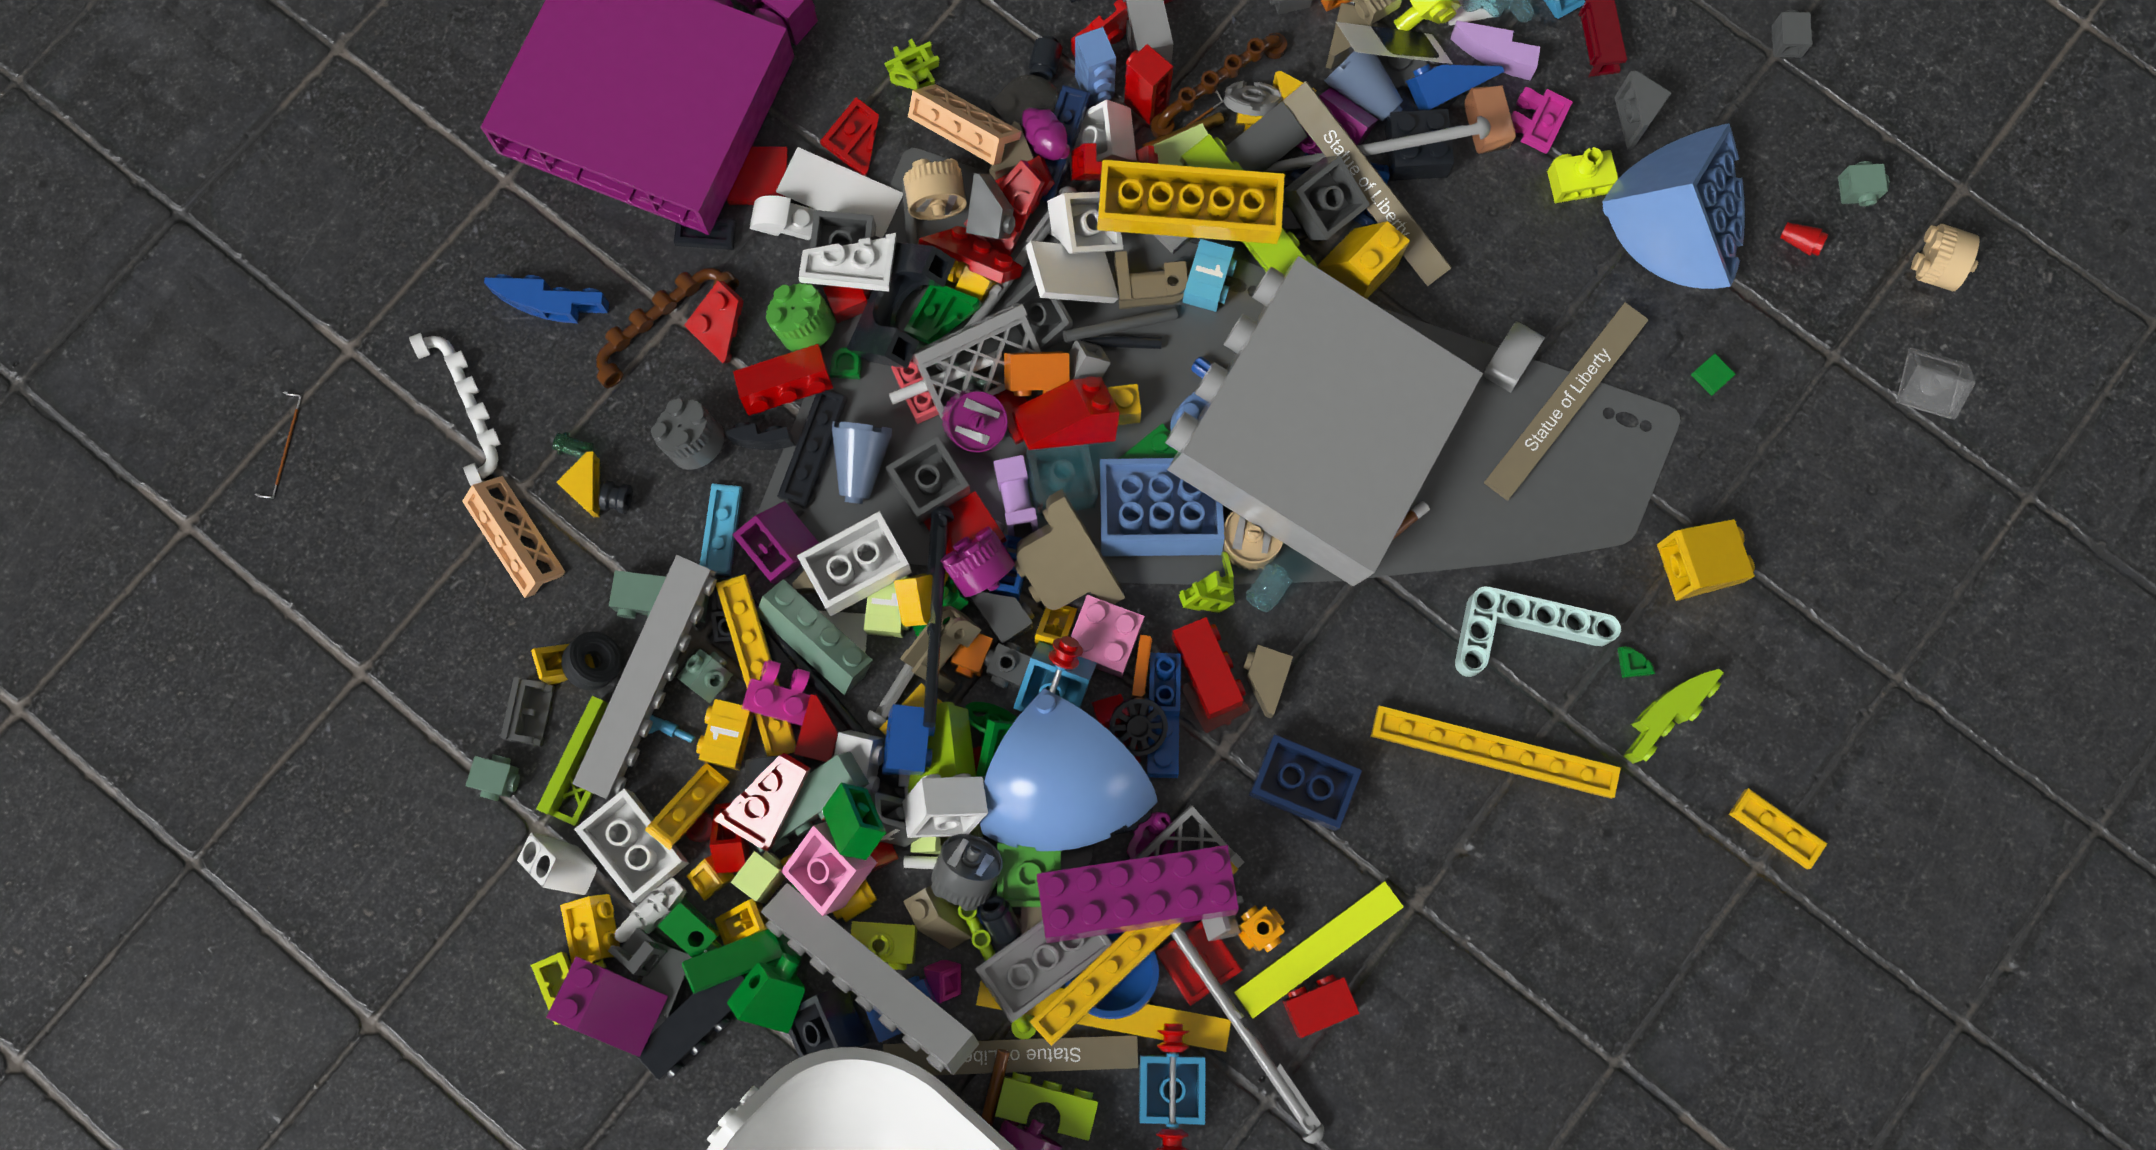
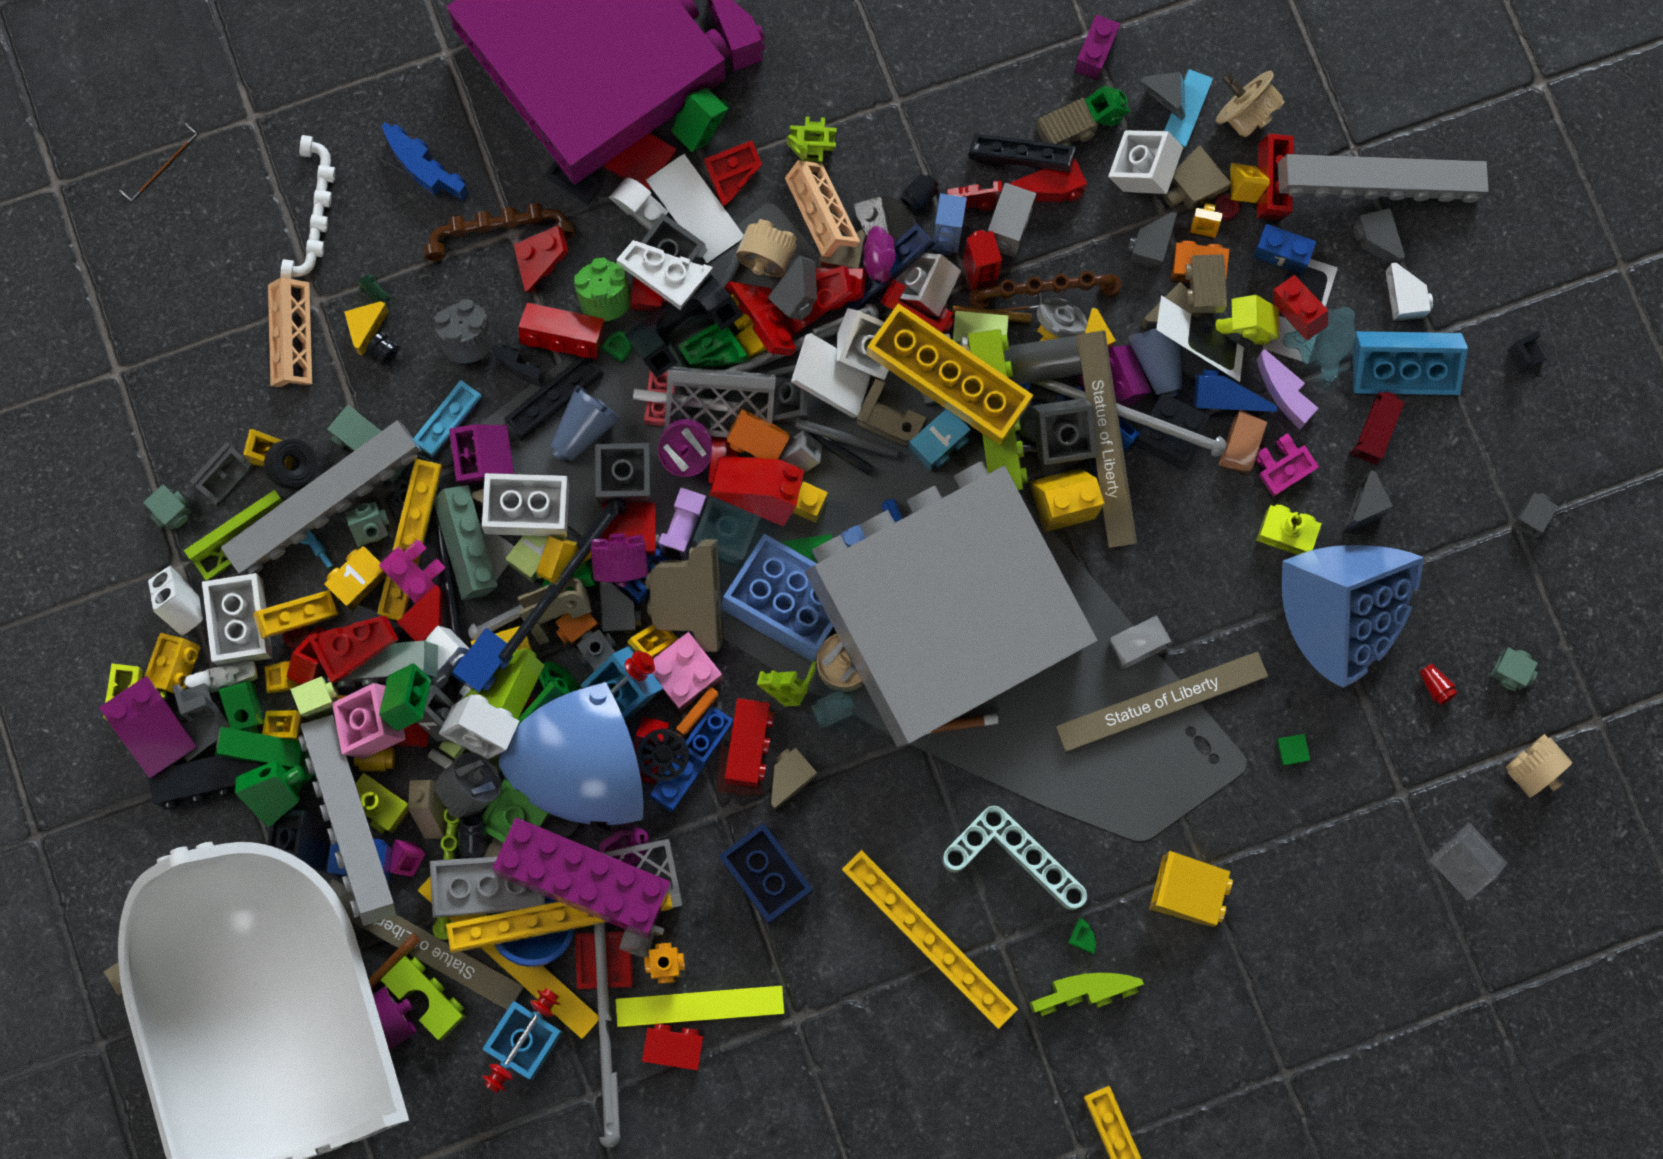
camera: 30 degrees right, 0 degrees up
(793, 104) = (699, 118): none -> green brick

